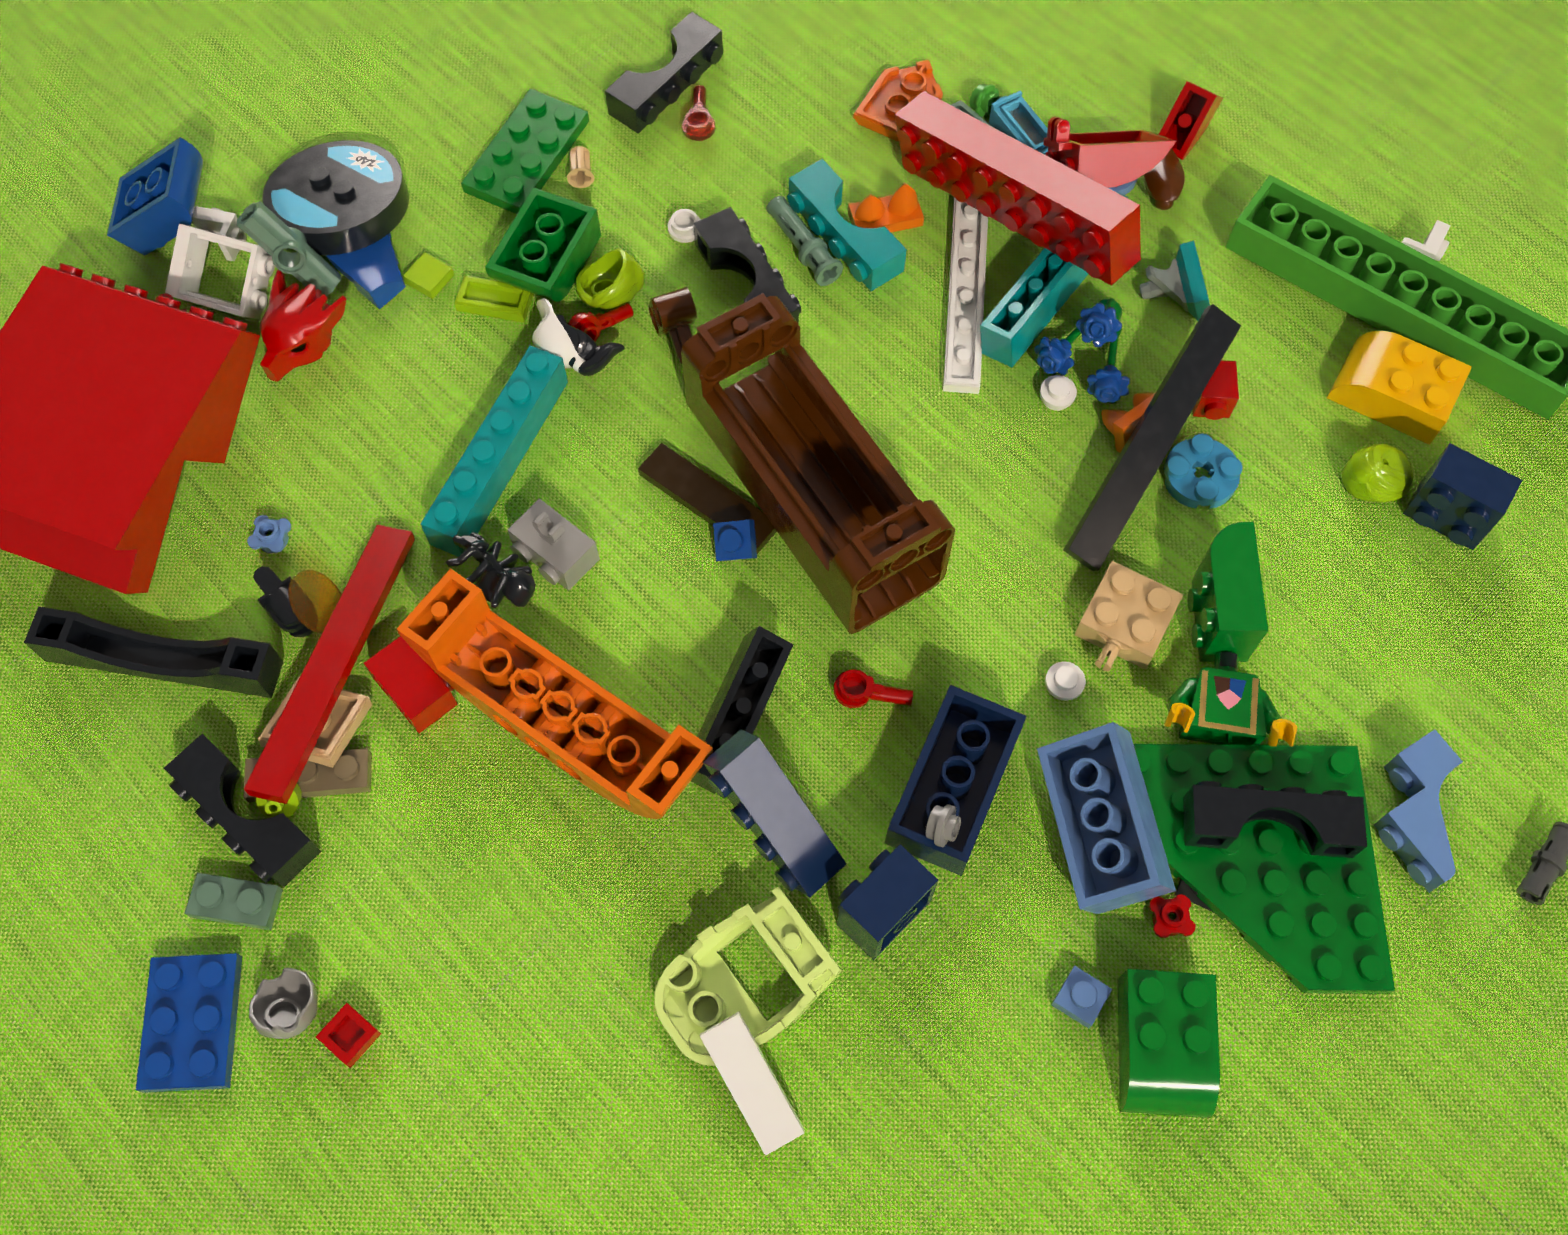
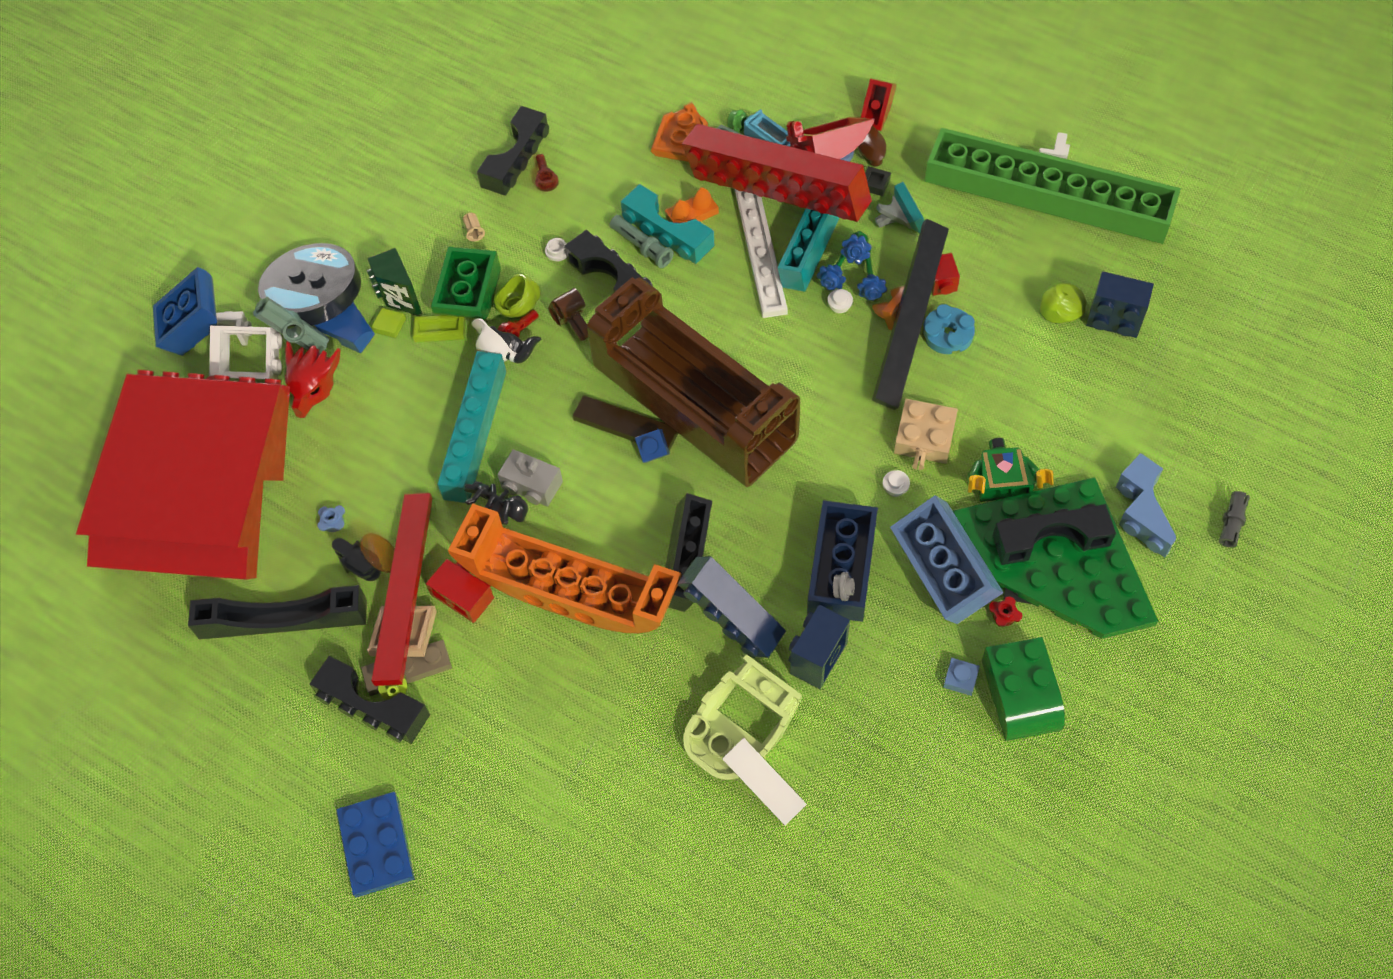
camera: 10 degrees left, 5 degrees down
(233, 901) = (381, 760): sand green plate -> none
(284, 1005) = (438, 814): light grey hair -> none
(348, 1035) = (486, 823): red plate -> none
(446, 219) = (393, 282): none -> dark green slope
(525, 151) = (431, 225): green plate -> none
(855, 689) = (760, 521): red plate -> none
(1157, 230) = (877, 180): none -> pearl dark grey plate
(1229, 596) = (987, 402): green brick -> none
(1400, 383) = (1061, 243): yellow brick -> none

